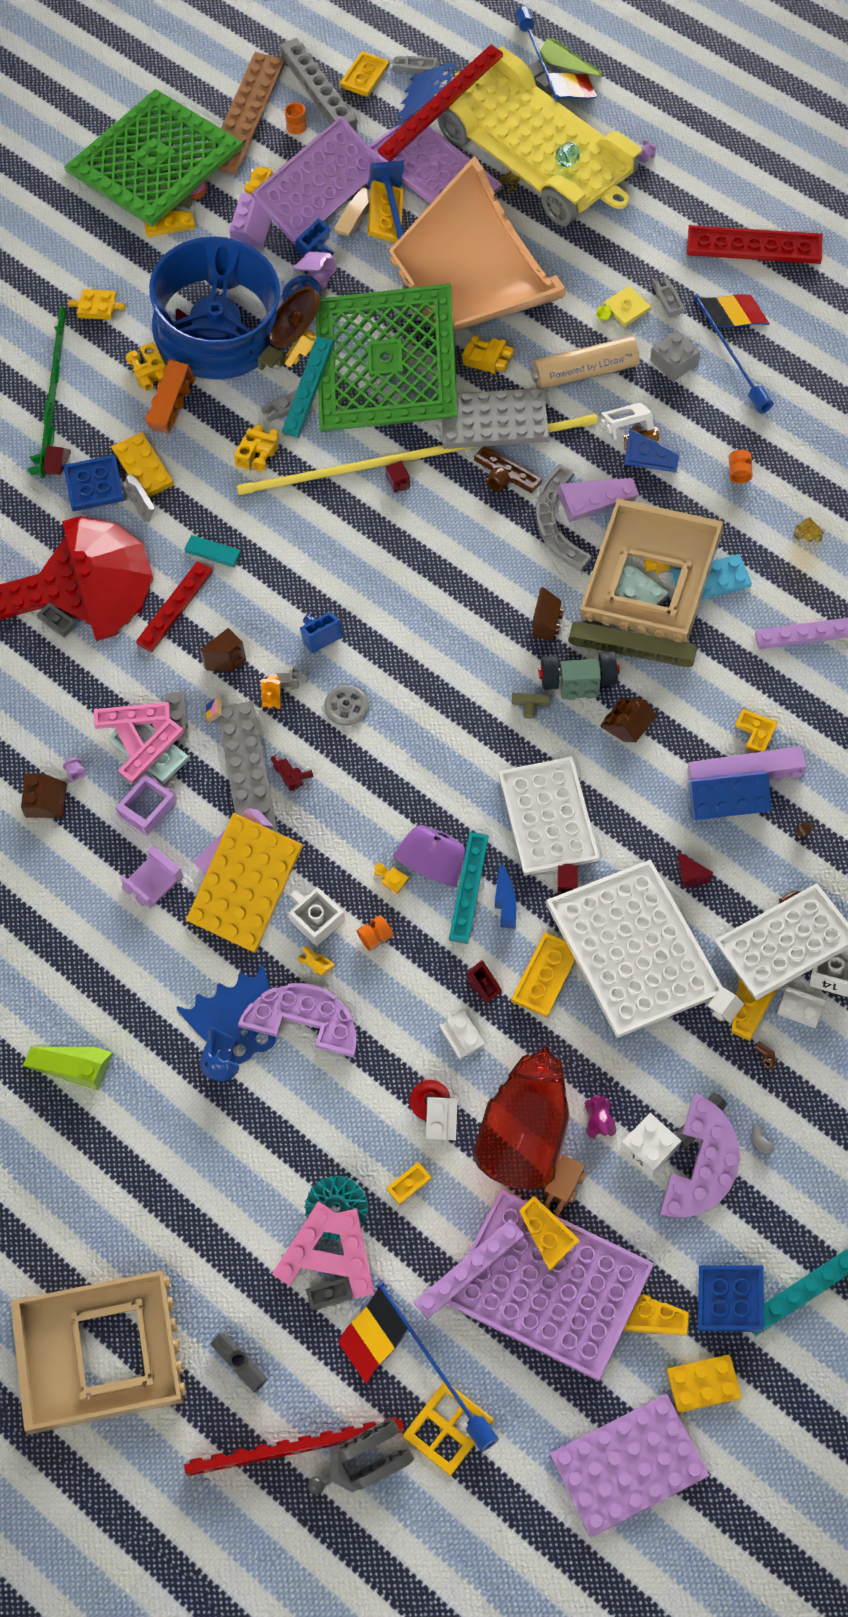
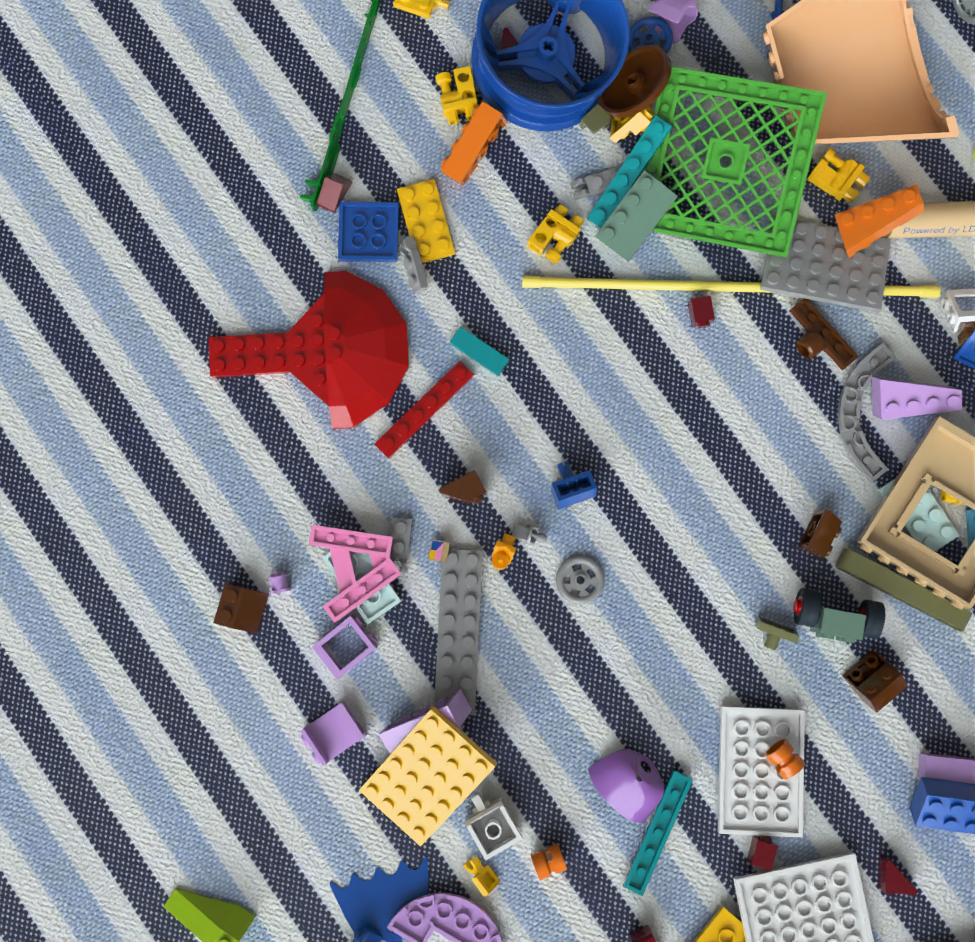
camera: 15 degrees right, 20 degrees up
(56, 620) = (295, 395): dark grey plate -> none
(291, 777) = (502, 651): dark red piece -> none
(321, 416) = (636, 216): none -> sand green slope
(392, 879) = (580, 799): yellow plate -> none
(505, 899) = (693, 857): blue slope -> none
(523, 368) = (877, 218): none -> orange wedge
(561, 791) = (787, 762): none -> orange wheel

